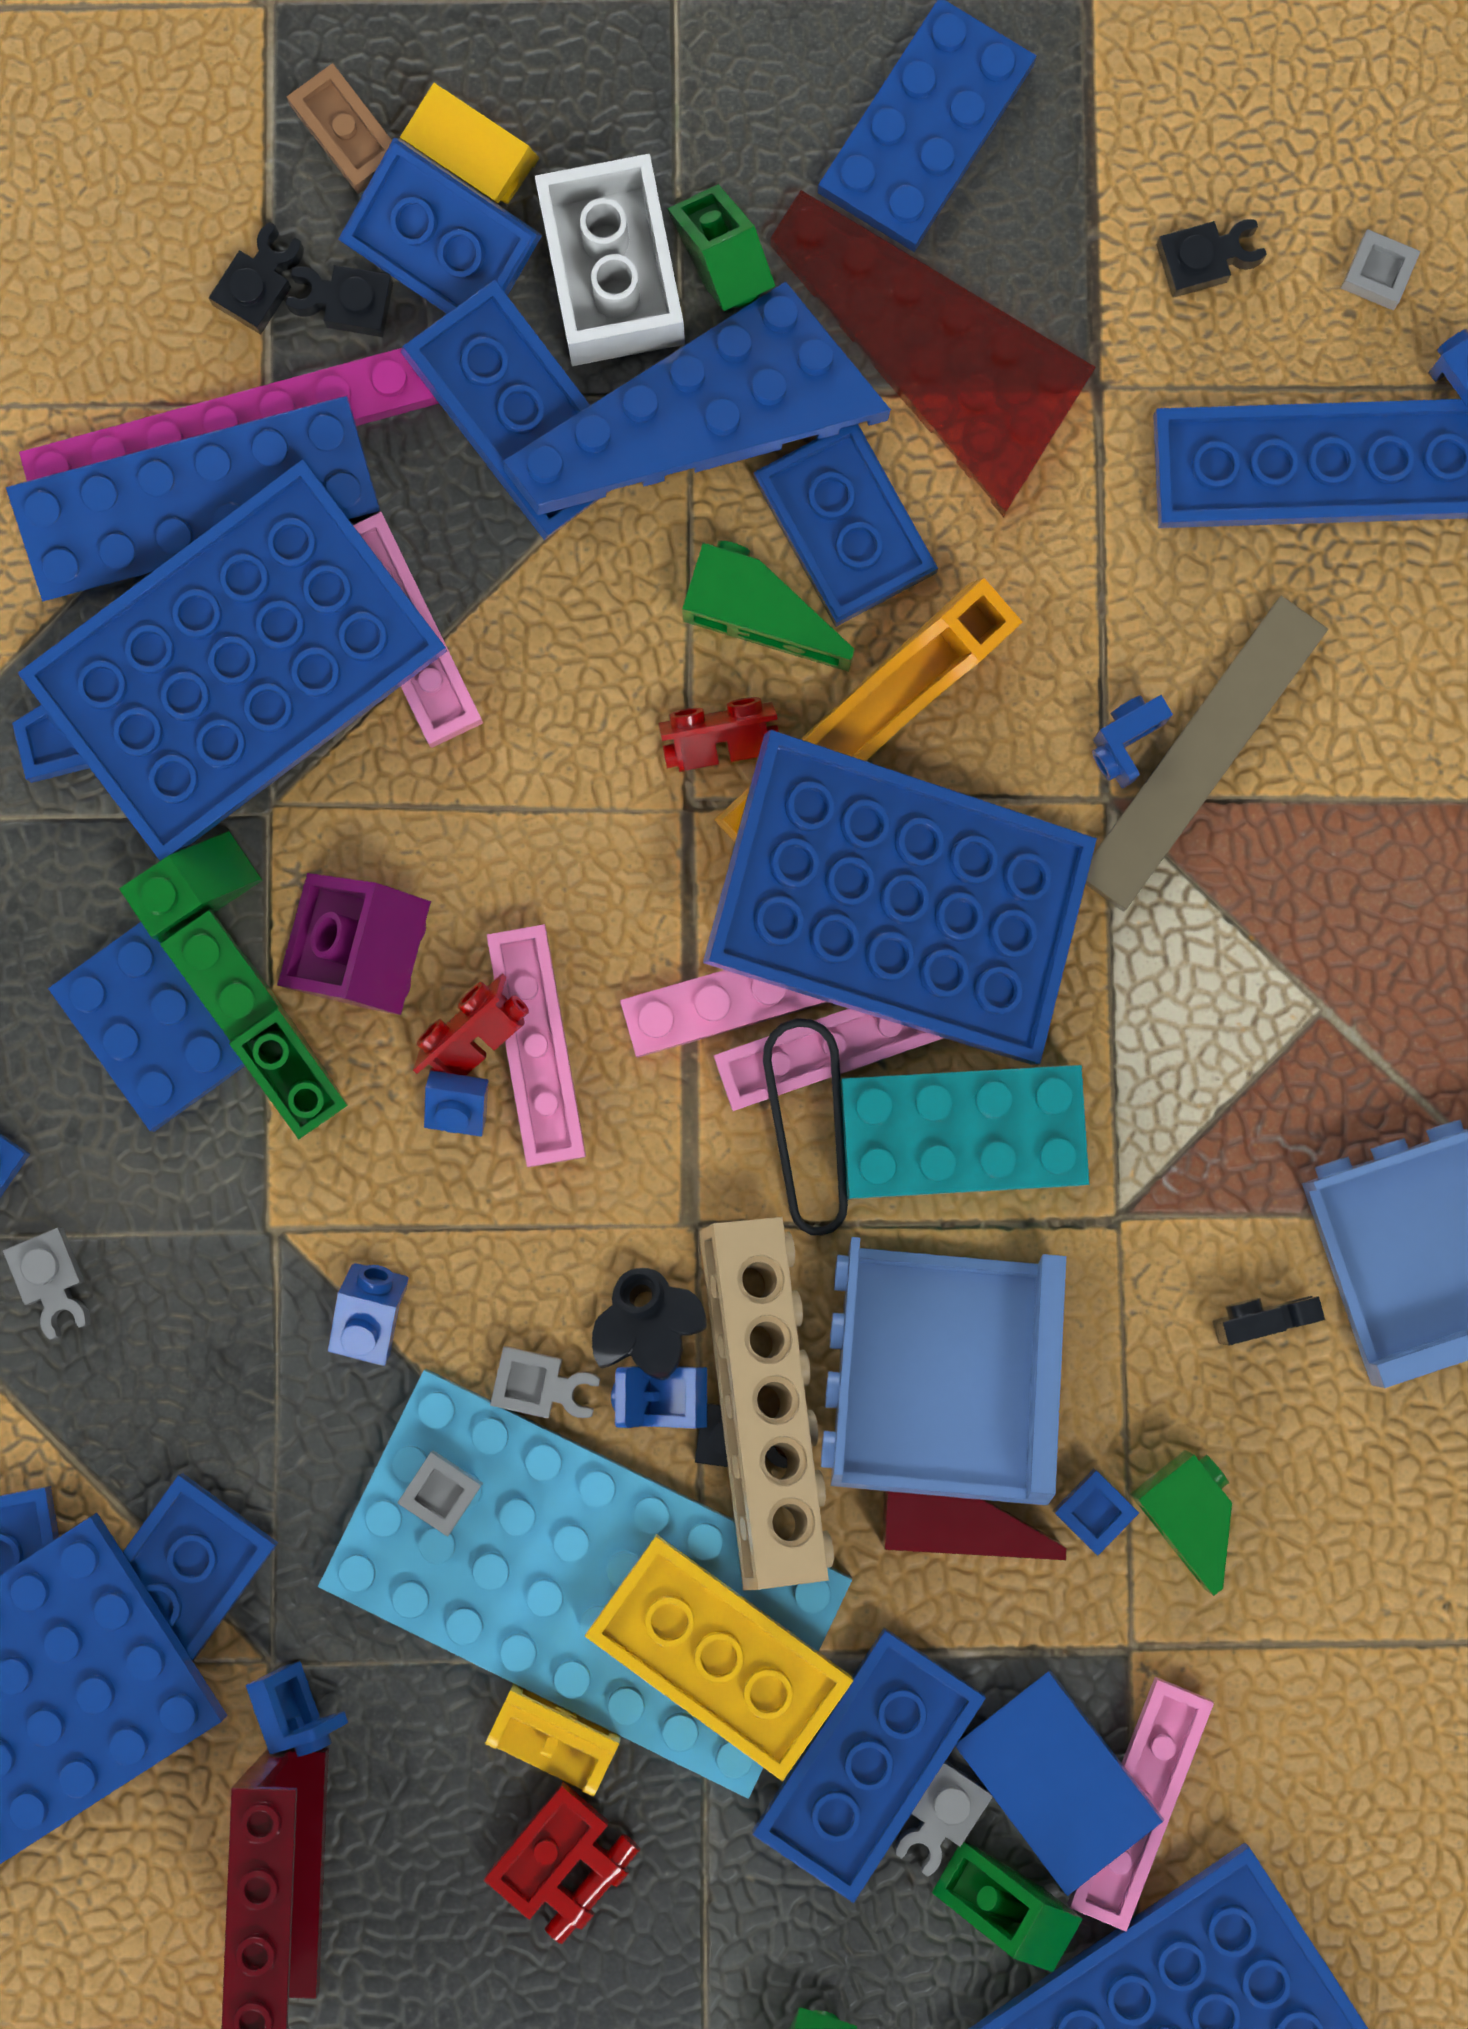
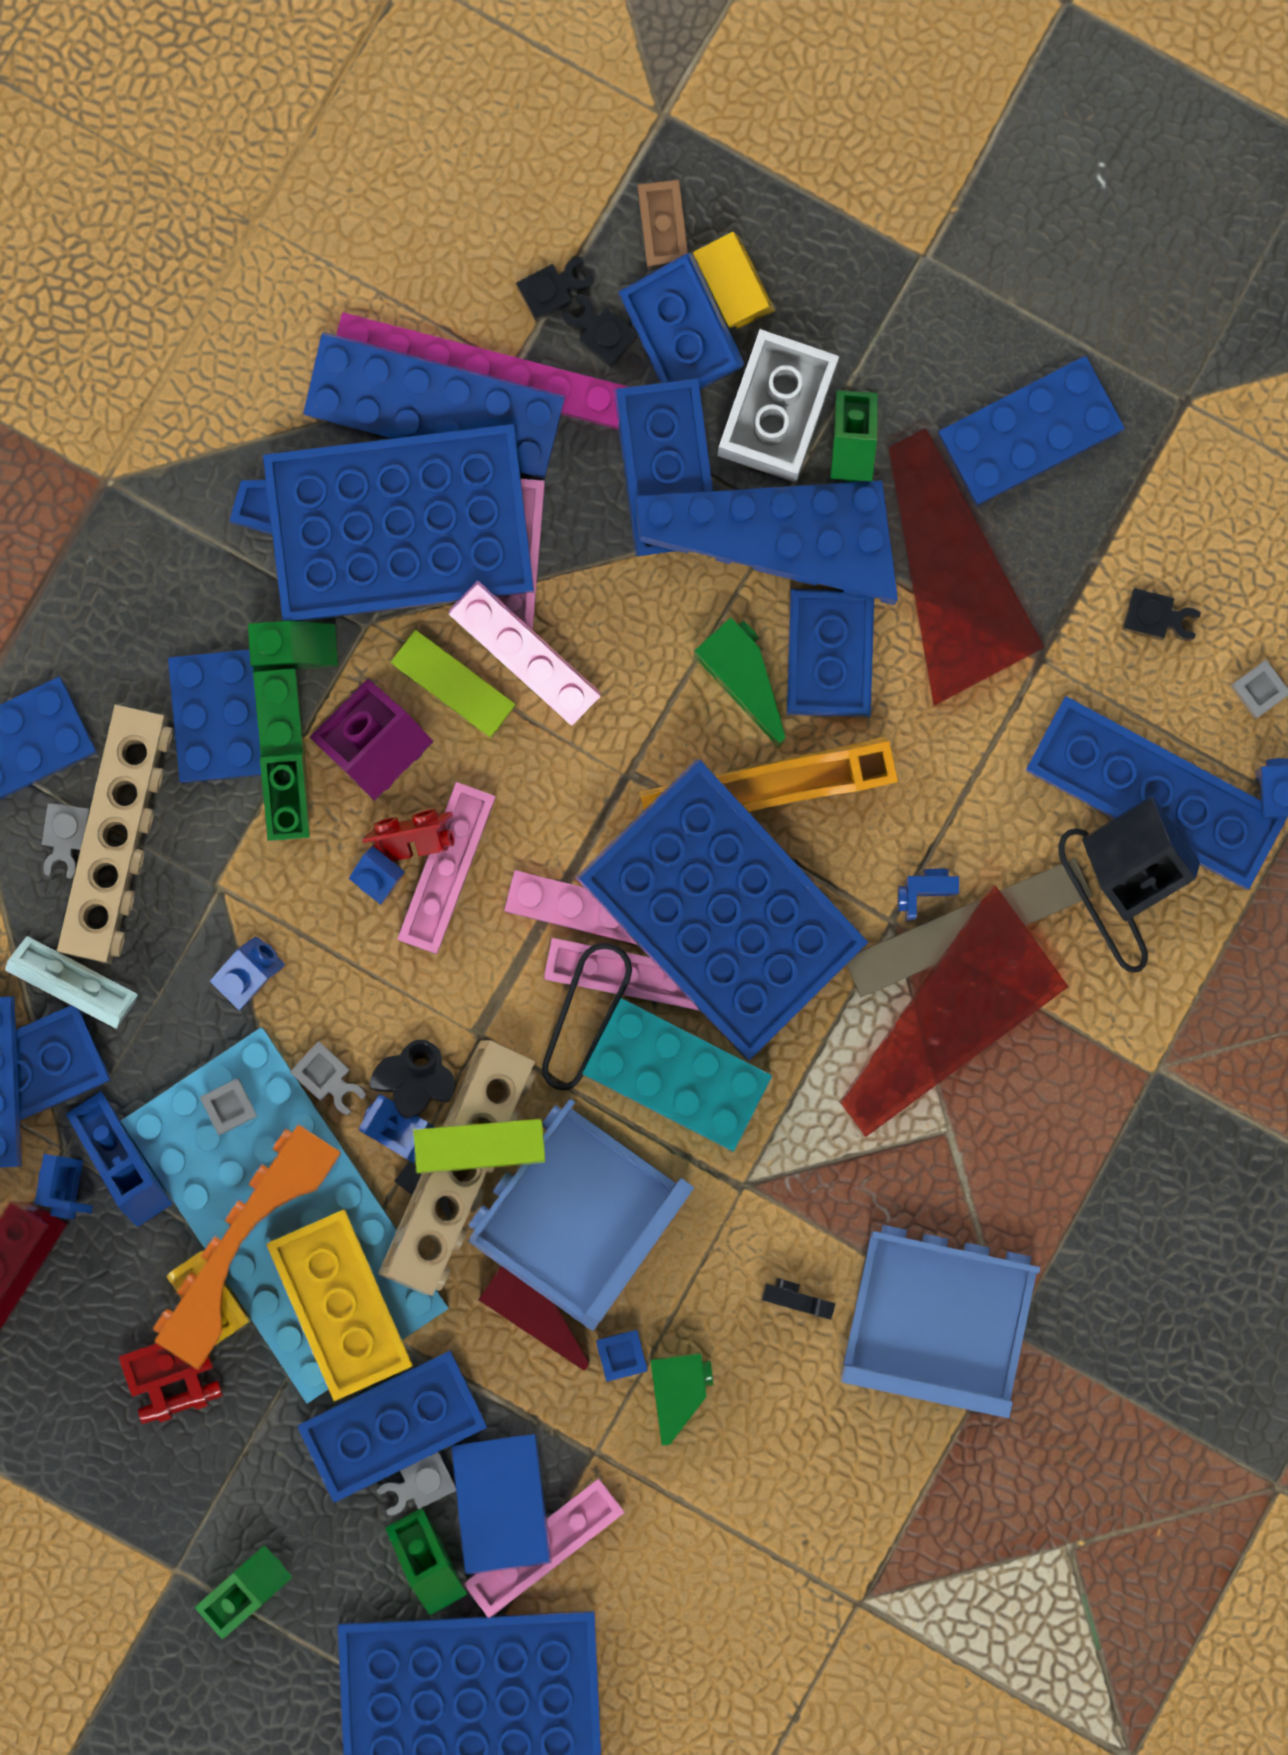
camera: 30 degrees right, 0 degrees up
(46, 1105) = (126, 728): none -> tan brick
(157, 1452) = (71, 982): none -> light aqua tile
(344, 1638) = (118, 1160): none -> blue slope
(414, 820) = (453, 684): none -> lime tile
(478, 730) = (524, 653): none -> plate
(556, 1783) = (296, 1171): none -> orange arch
(697, 733) = (659, 732): red hinge -> none
(777, 1362) = (479, 1146): none -> lime tile
(1258, 835) = (969, 1000): none -> clear red wing
(1274, 605) = (1061, 849): none -> black piece
(1365, 546) = (1140, 858): none -> black slope

